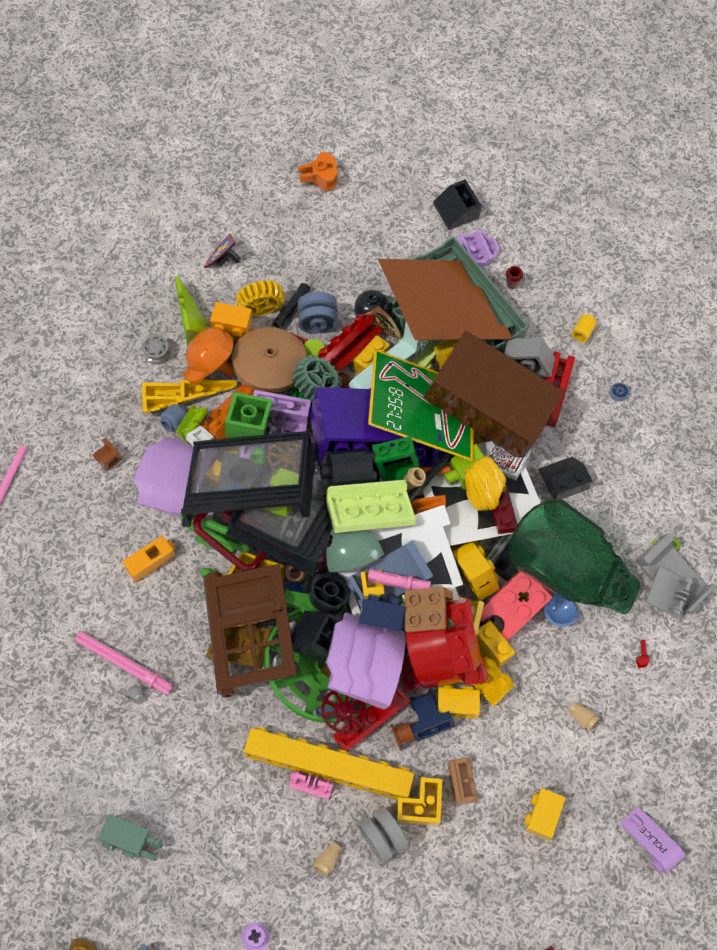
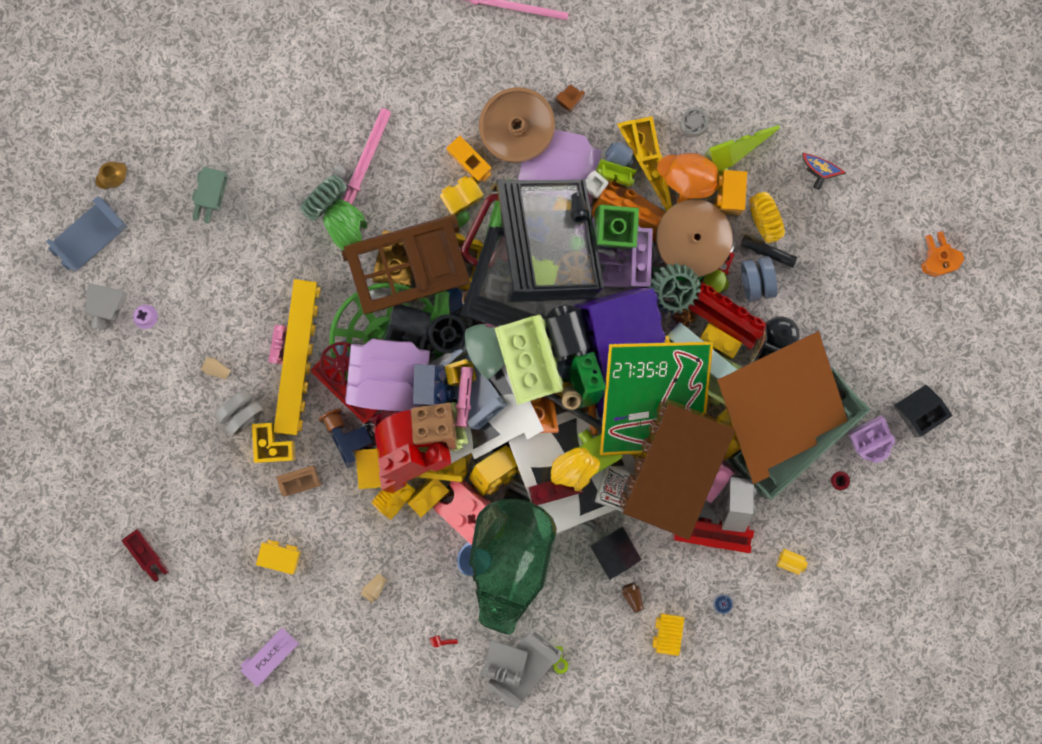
camera: 85 degrees right, 20 degrees up
(110, 495) = (511, 109): none -> medium nougat dish
(160, 708) = (323, 197): none -> sand green gear
(185, 571) = (462, 195): none -> yellow brick
(192, 693) = (344, 223): none -> bright green hair
(226, 444) = (579, 209): none -> black cone
(607, 467) = (632, 595): none -> reddish brown cone
(646, 440) = (668, 634): none -> yellow brick

